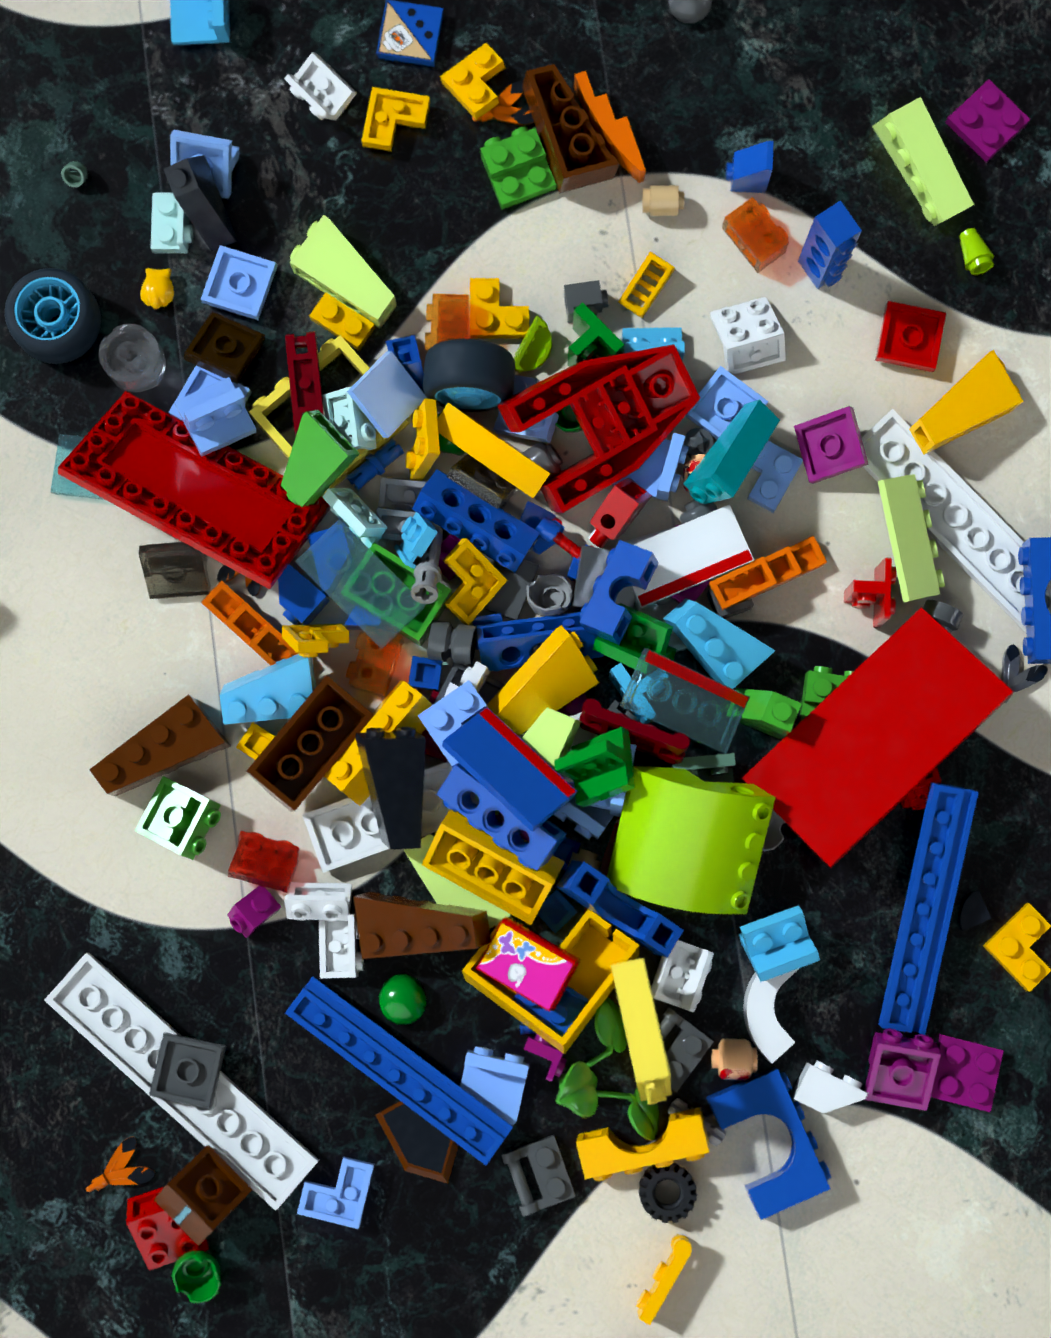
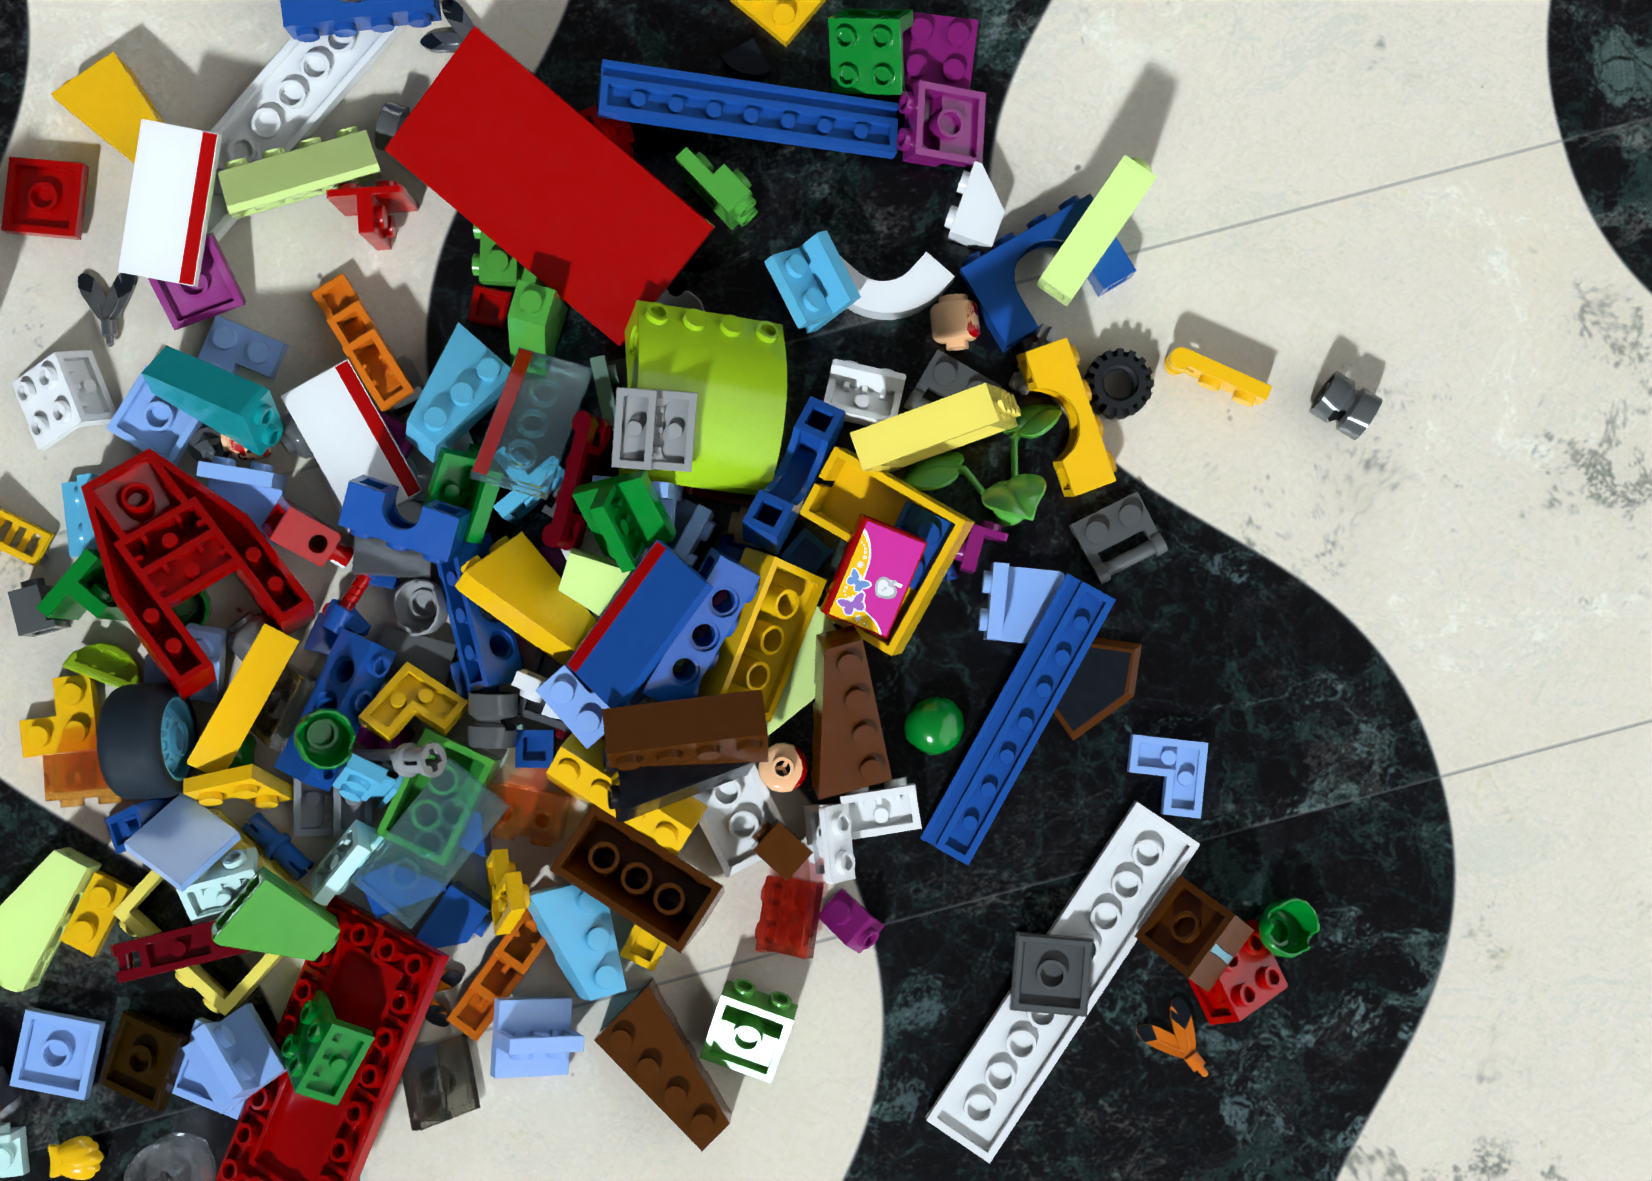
camera: 100 degrees left, 5 degrees up
(198, 646) = (533, 1036): none -> light blue bracket
(209, 485) = (324, 1051): none -> green bracket
(319, 860) = (780, 848): none -> reddish brown brick
(392, 879) = (791, 755): none -> light nougat head
(419, 798) = (687, 731): none -> reddish brown wedge
(451, 512) = (324, 738): none -> green hair
(665, 799) = (654, 429): none -> light grey slope
(787, 676) = (490, 307): none -> red tile
(796, 1190) = (1097, 229): none -> yellowish green slope
(818, 376) = (107, 307): none -> flat silver piece
(861, 879) = (723, 191): none -> bright green plate
(893, 434) = (169, 203): none -> white tile
(972, 1014) = (868, 50): none -> green bracket

